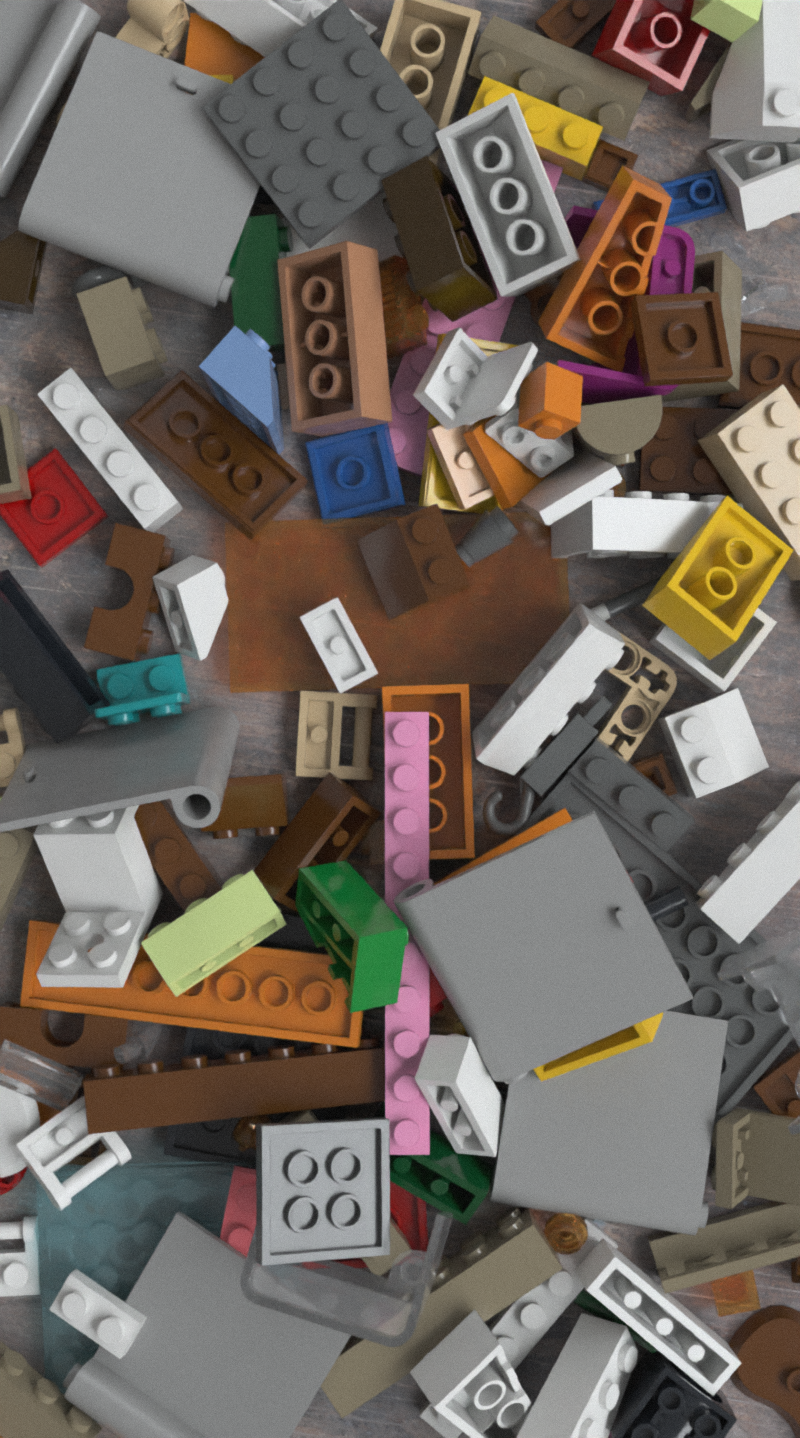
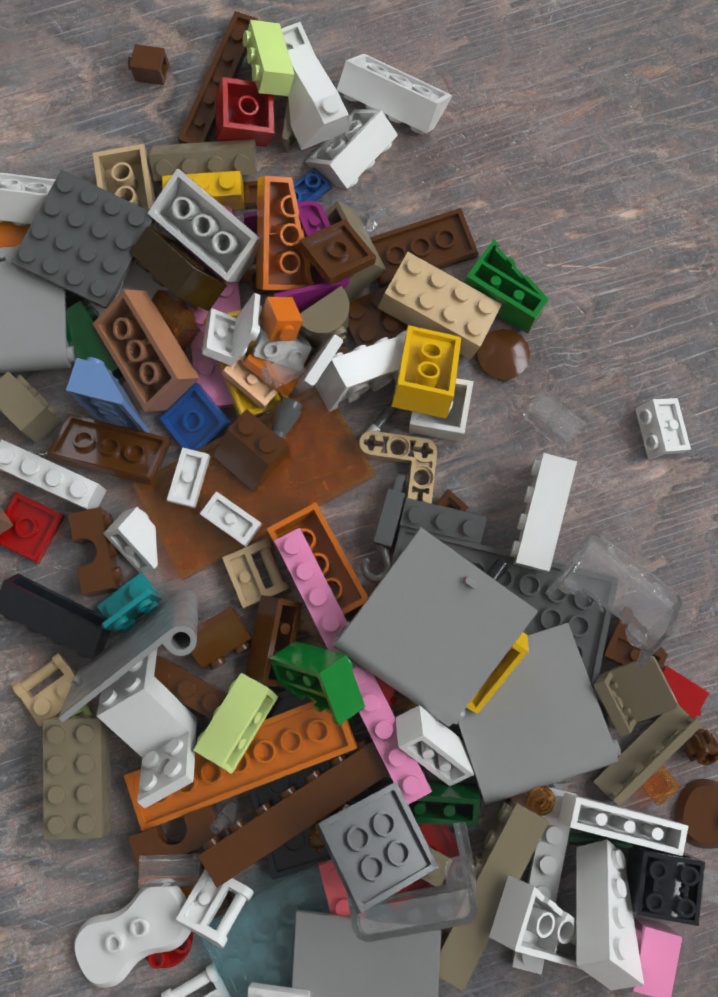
camera: 20 degrees left, 10 degrees down
(308, 556) = (188, 478): none -> white plate
(517, 473) = (283, 368): none -> clear brick
(546, 691) = (363, 484): white slope -> none
(713, 744) = (474, 469): white slope -> none

